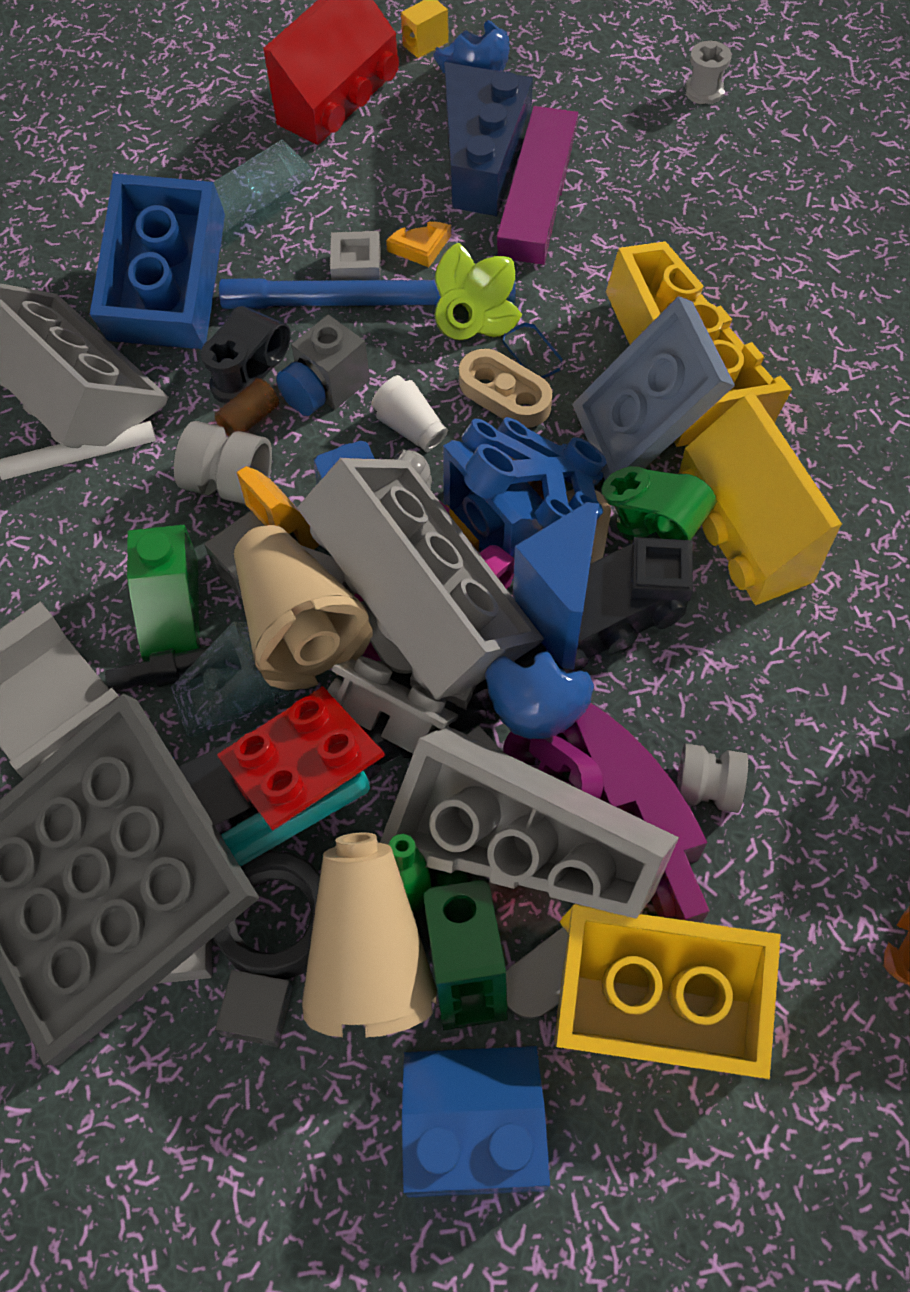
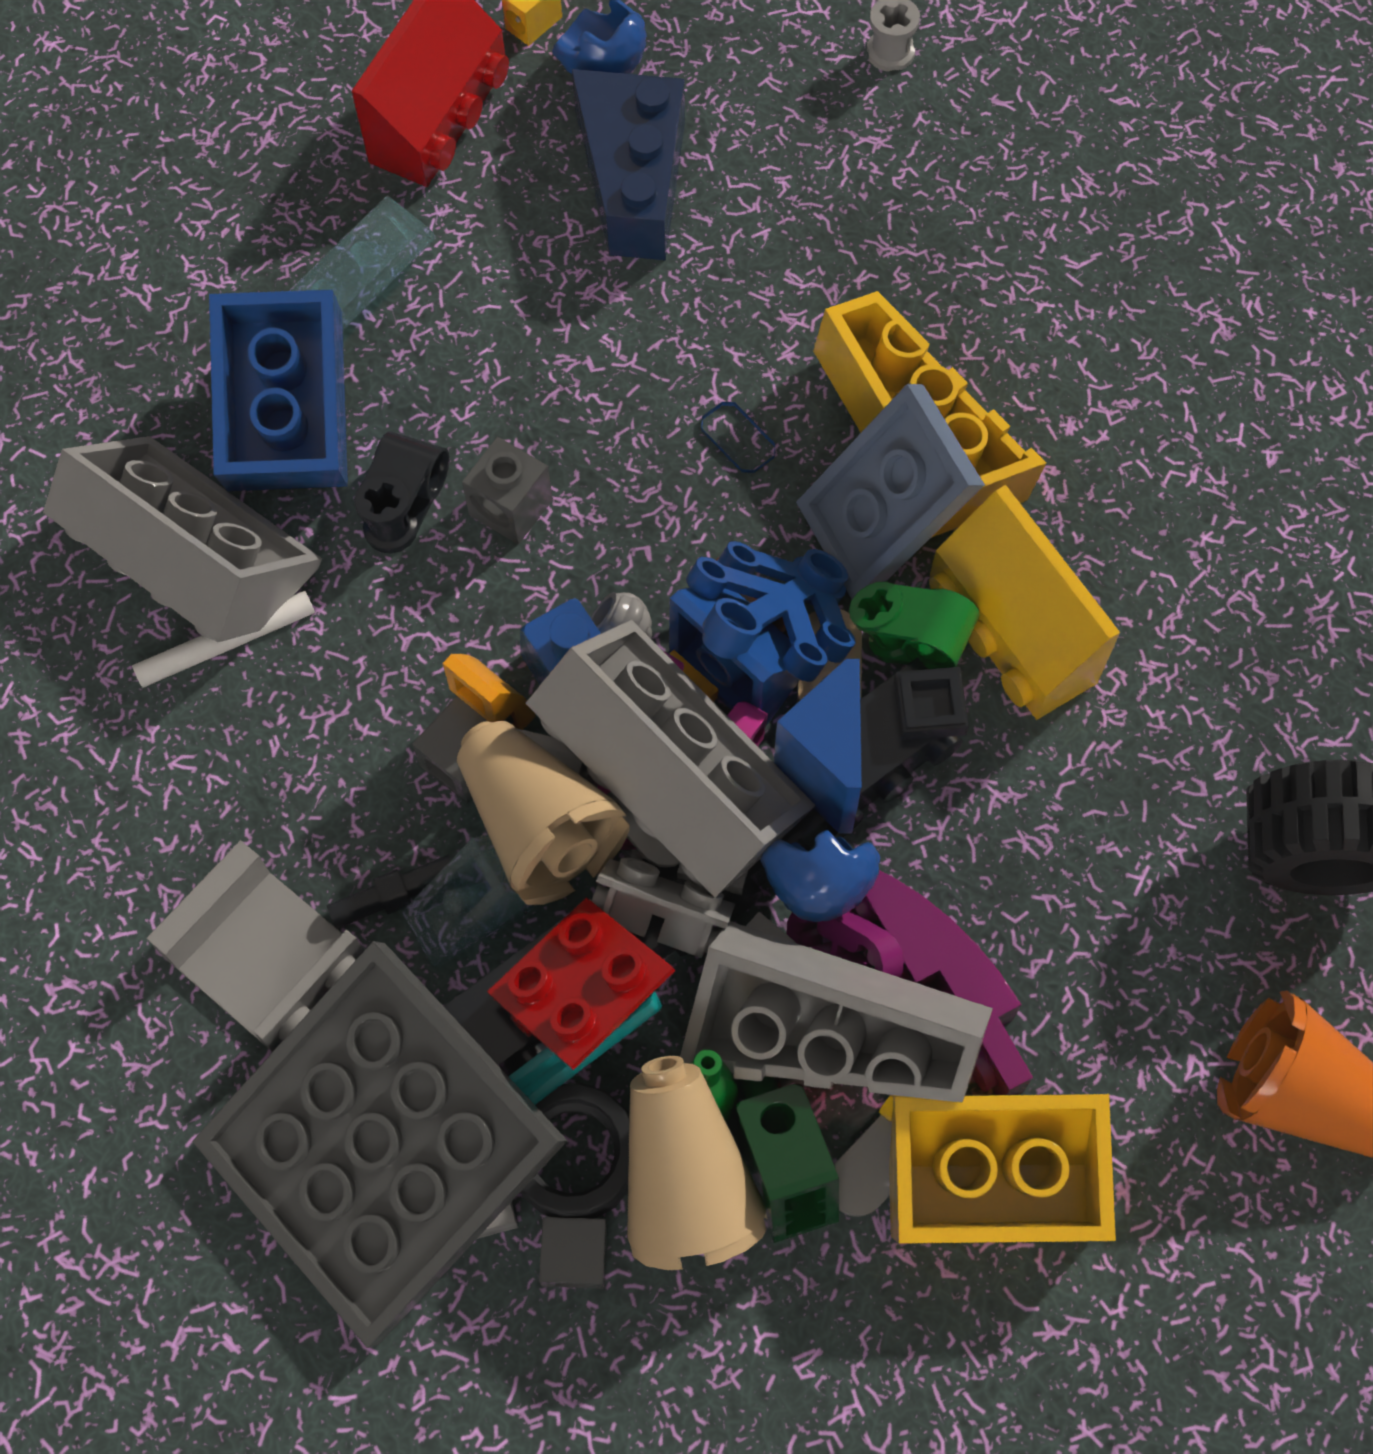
camera: 10 degrees left, 5 degrees up
(163, 589) = (373, 803): green slope -> none
(210, 460) = (401, 636): light grey wheel -> none
(236, 414) = (419, 555): clear orange piece -> none
(262, 293) = (404, 404): blue piece -> none
(301, 388) = (477, 527): blue tile -> none
(355, 255) = (507, 342): light grey plate -> none
(407, 412) = (609, 541): white cone -> none
(421, 243) = (580, 310): light orange tile -> none
(473, 1122) = (824, 1330): blue slope -> none
(480, 290) = (667, 373): lime plate -> none
(509, 387) = (720, 491): tan plate -> none
(537, 185) = (710, 214): magenta slope -> none
(712, 778) = (1015, 929): light grey wheel -> none

